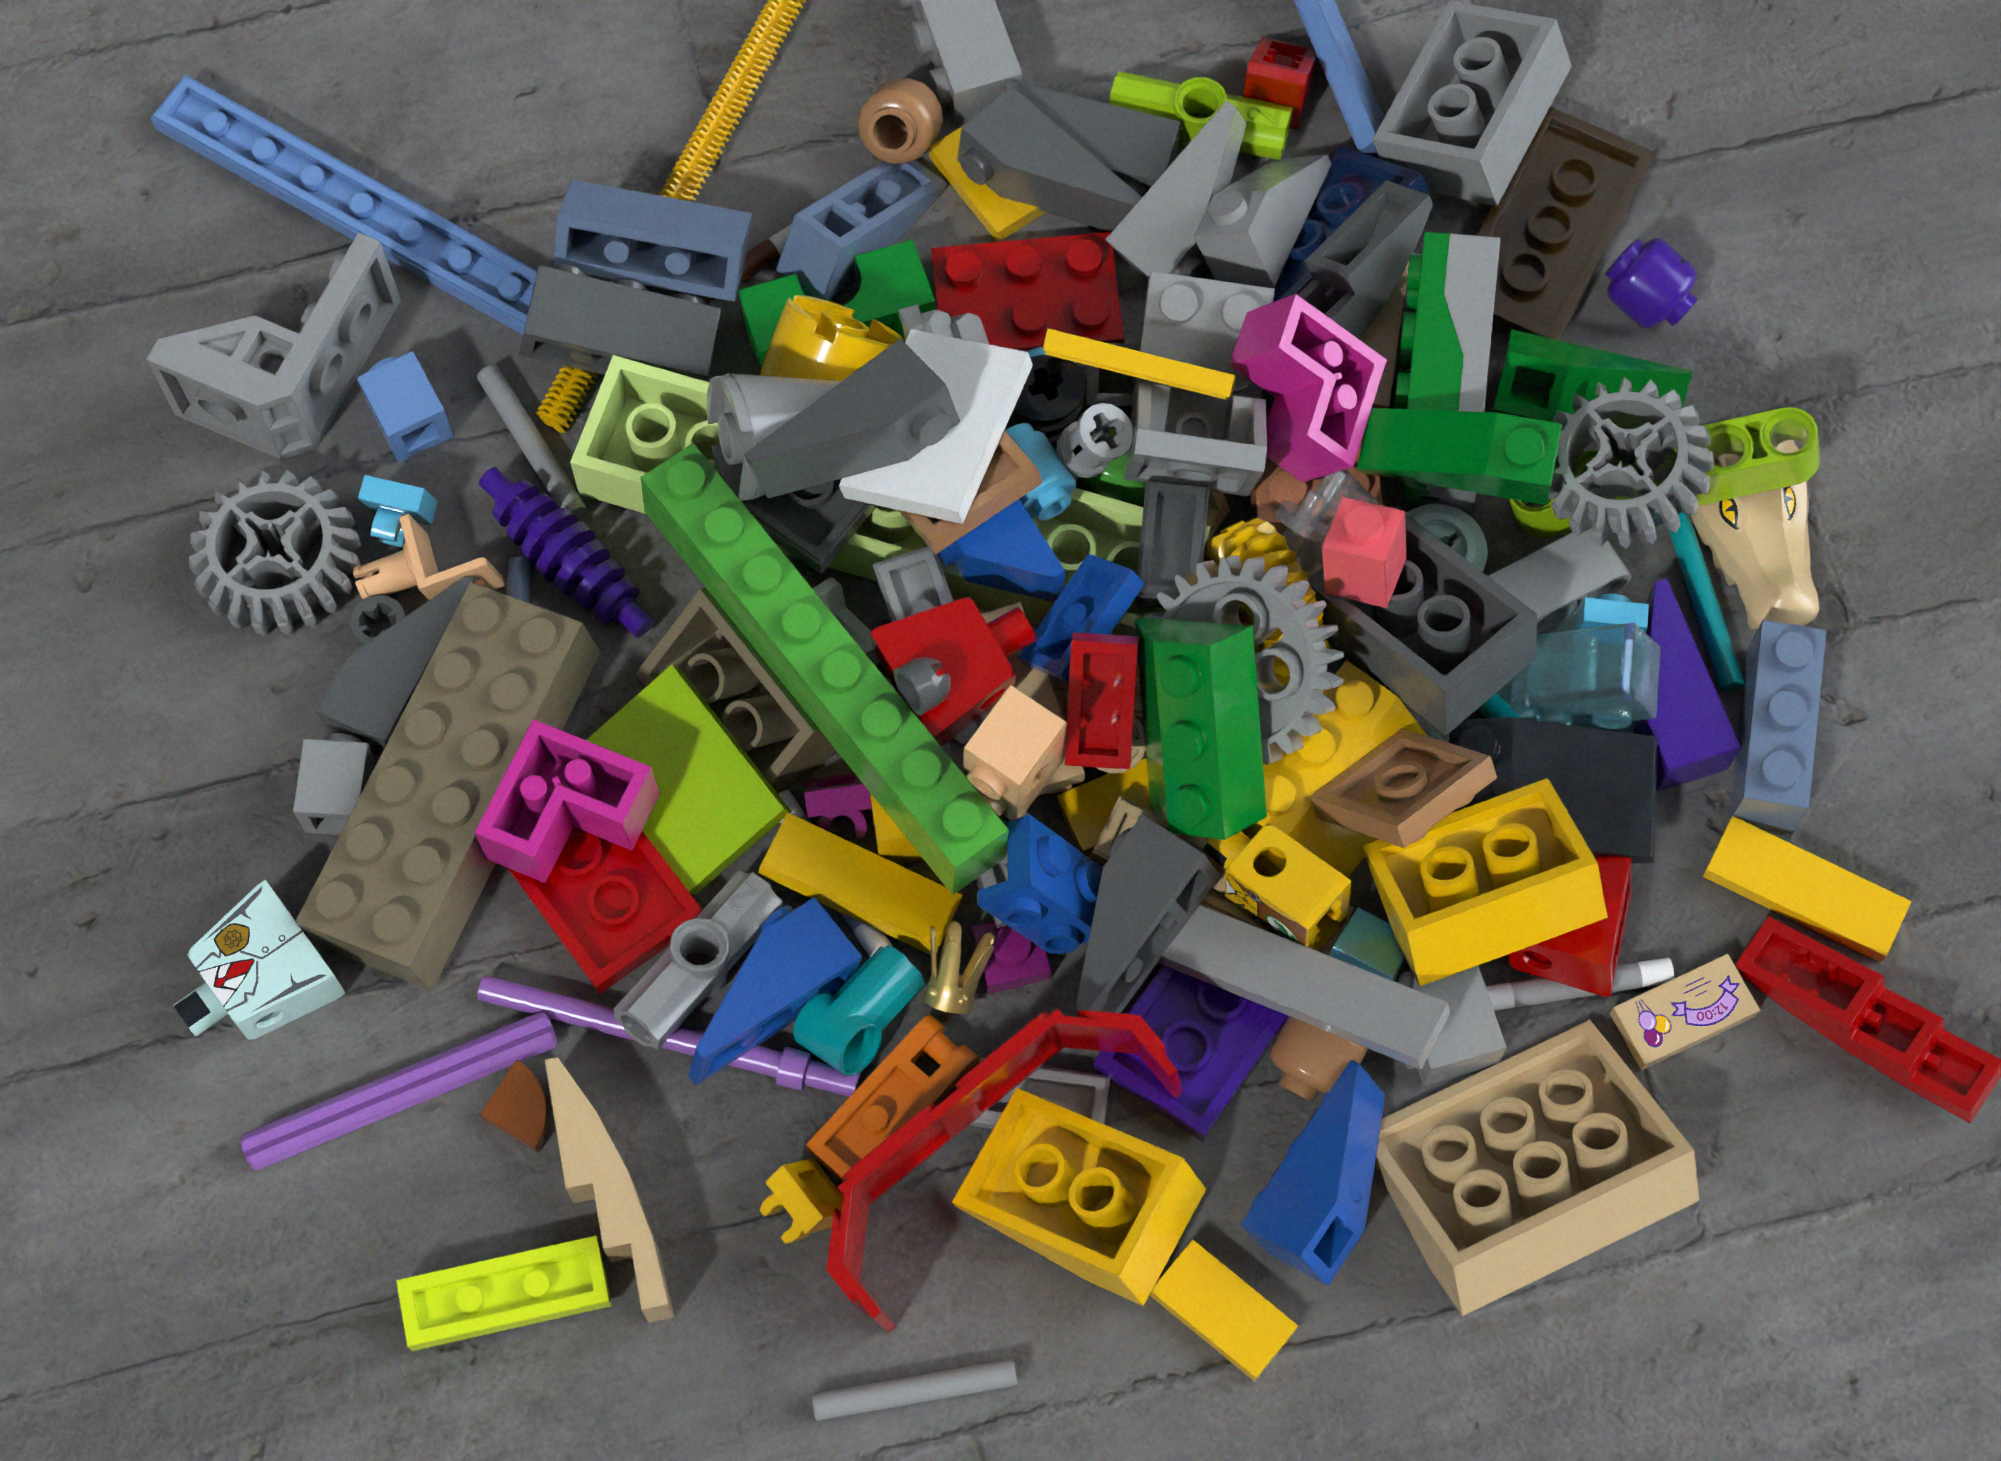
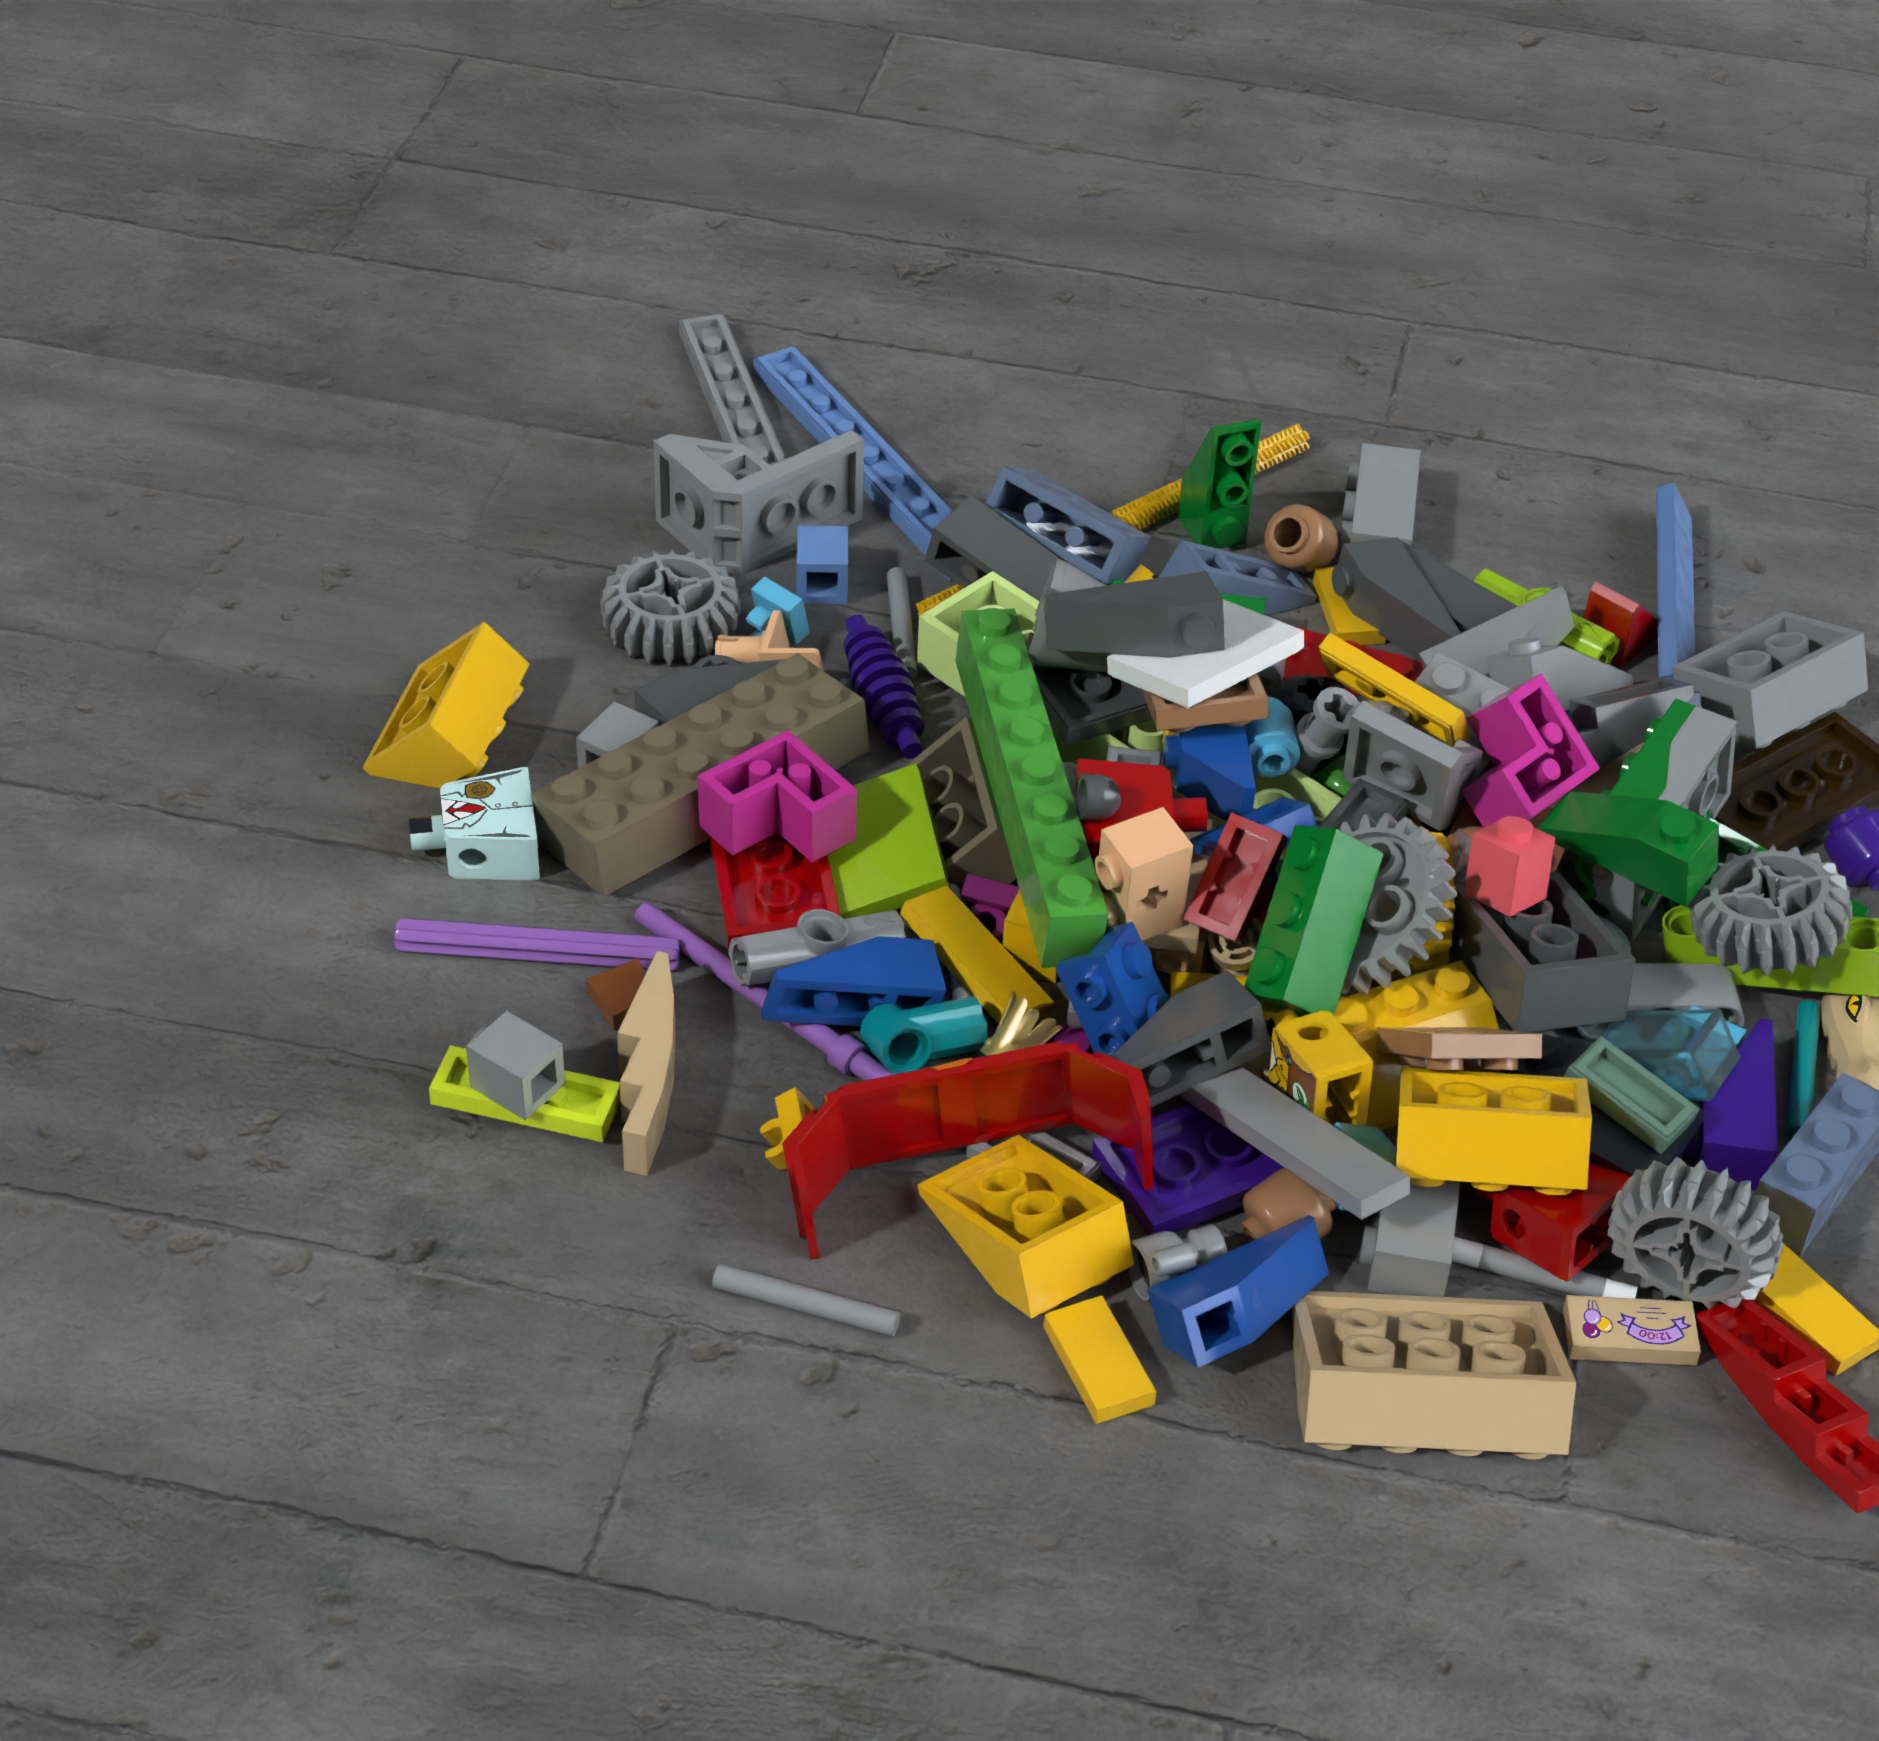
camera: 25 degrees right, 25 degrees down
(122, 829) = (450, 712): none -> yellow slope
(166, 195) = (729, 386): none -> light grey tile
(487, 1287) = (515, 1064): none -> light grey brick
(789, 104) = (1220, 485): none -> green slope
(1236, 1168) = (1167, 1255): none -> light grey piece
(1590, 764) = (1633, 1095): none -> sand green tile
(1717, 902) = (1695, 1233): none -> light grey gear

